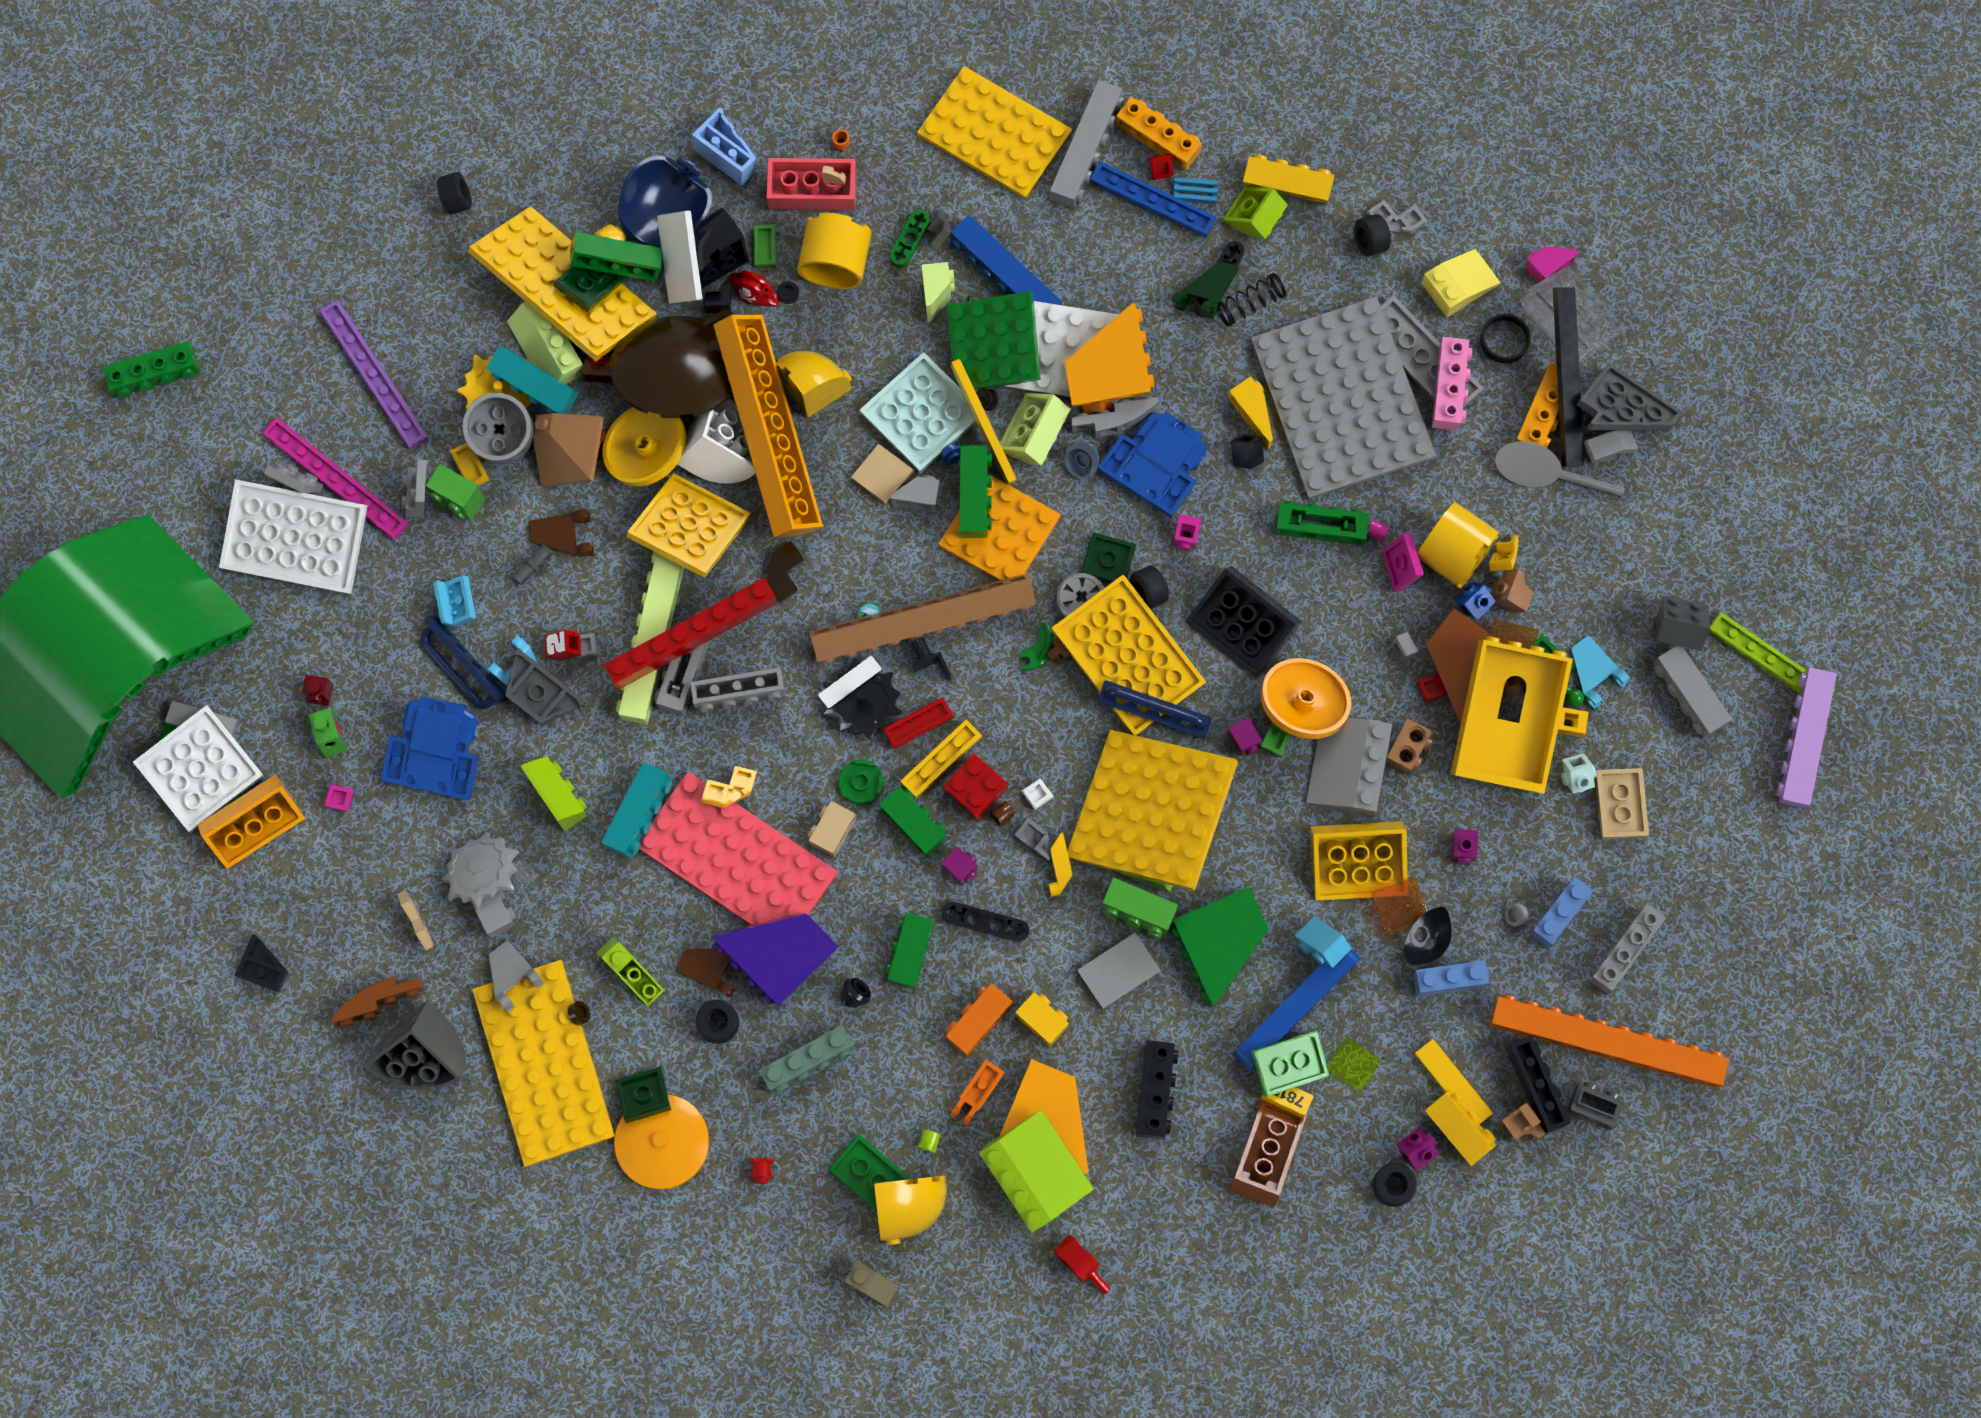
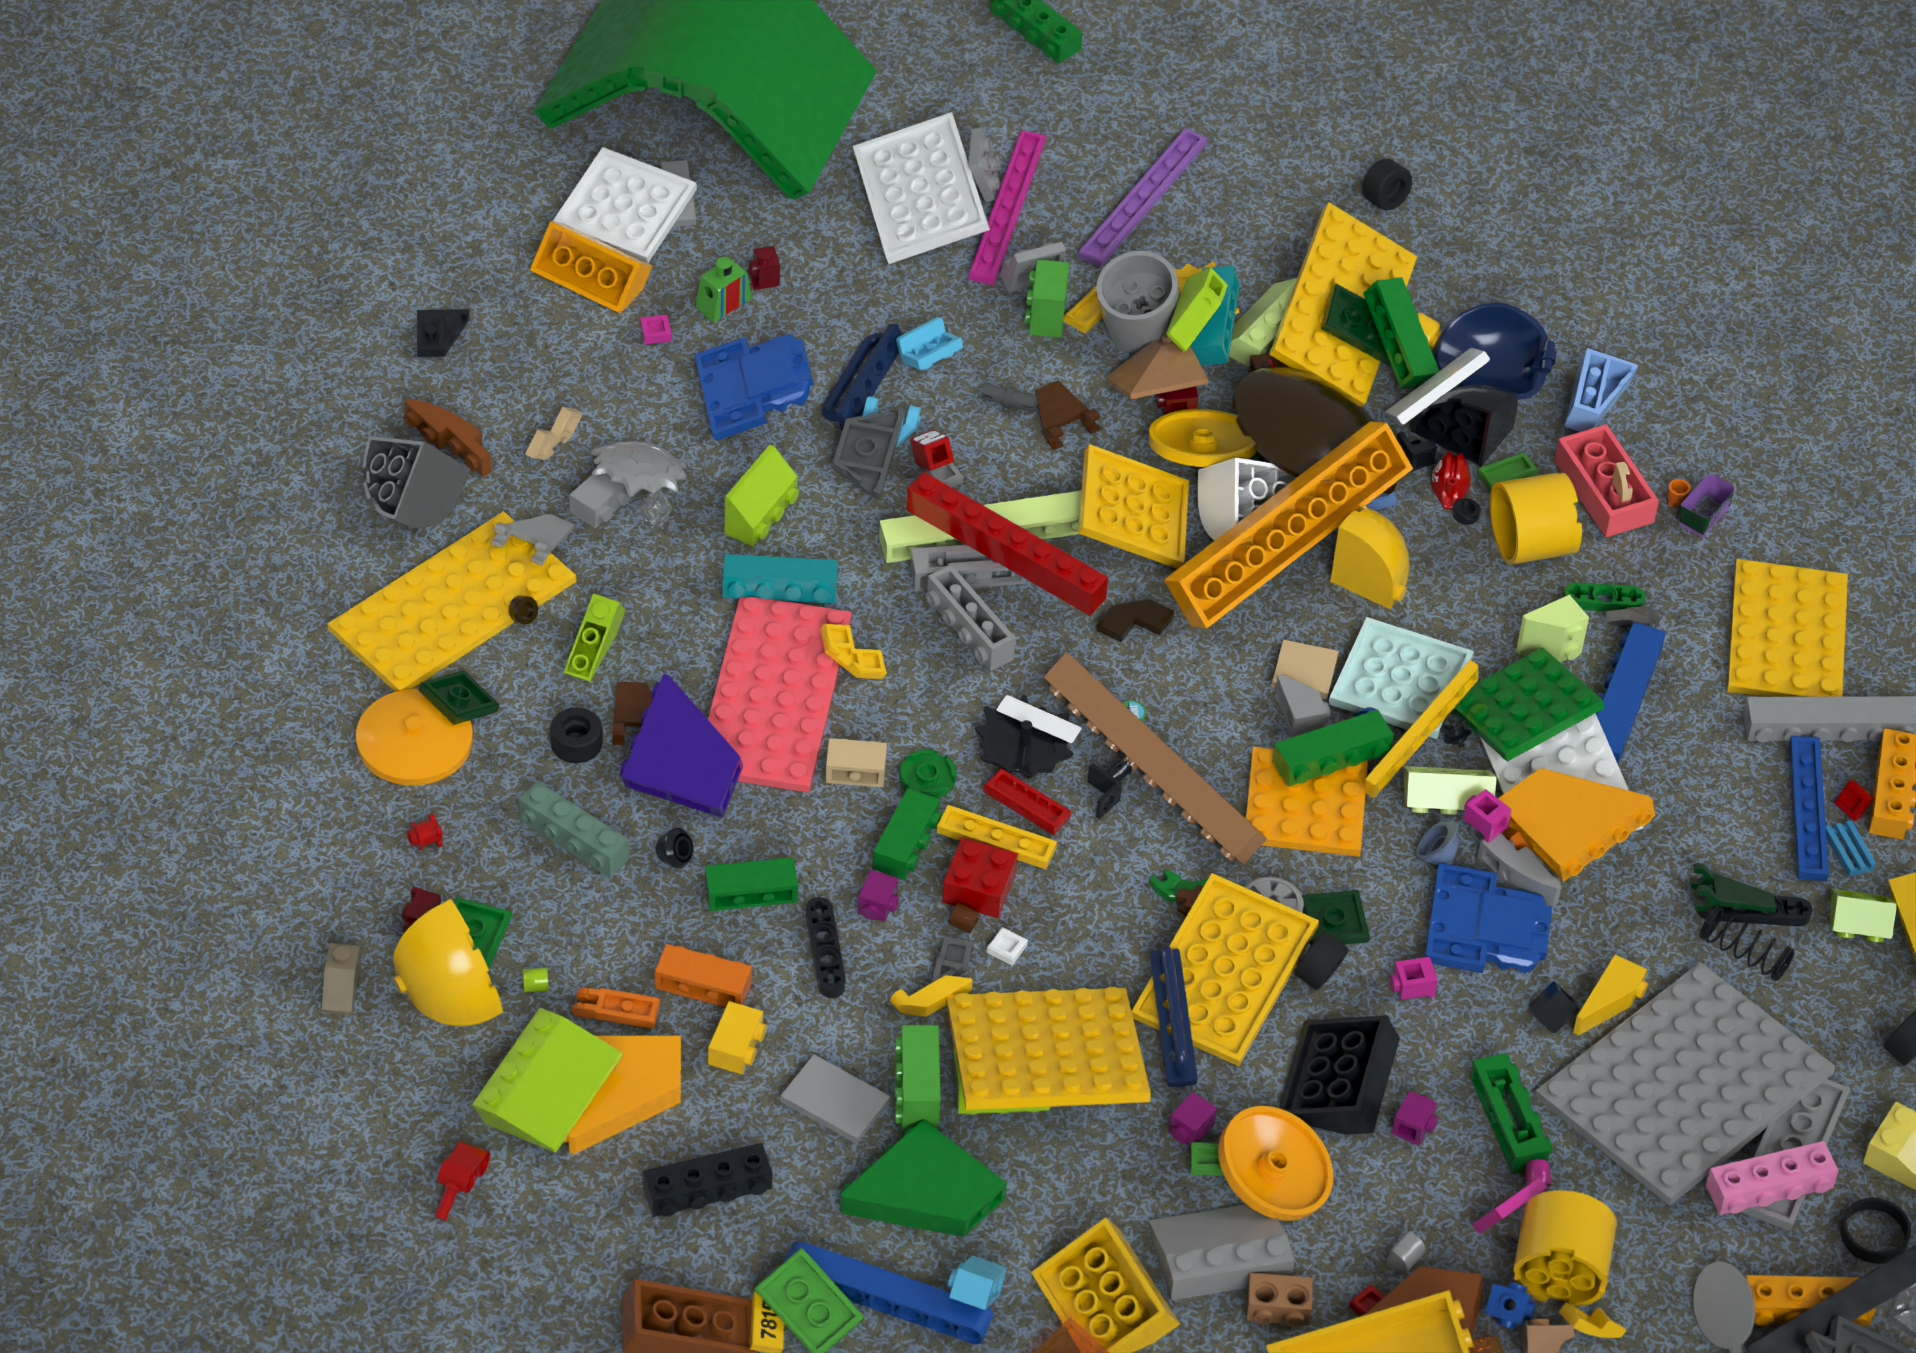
camera: 60 degrees right, 25 degrees down
(532, 391) = (1195, 307): none -> lime slope
(835, 1202) = (421, 903): none -> dark red brick
(856, 109) = (1713, 487): none -> medium lavender piece
(1084, 410) = (1487, 814): none -> dark pink brick
(1300, 587) = (1415, 1118): none -> magenta brick

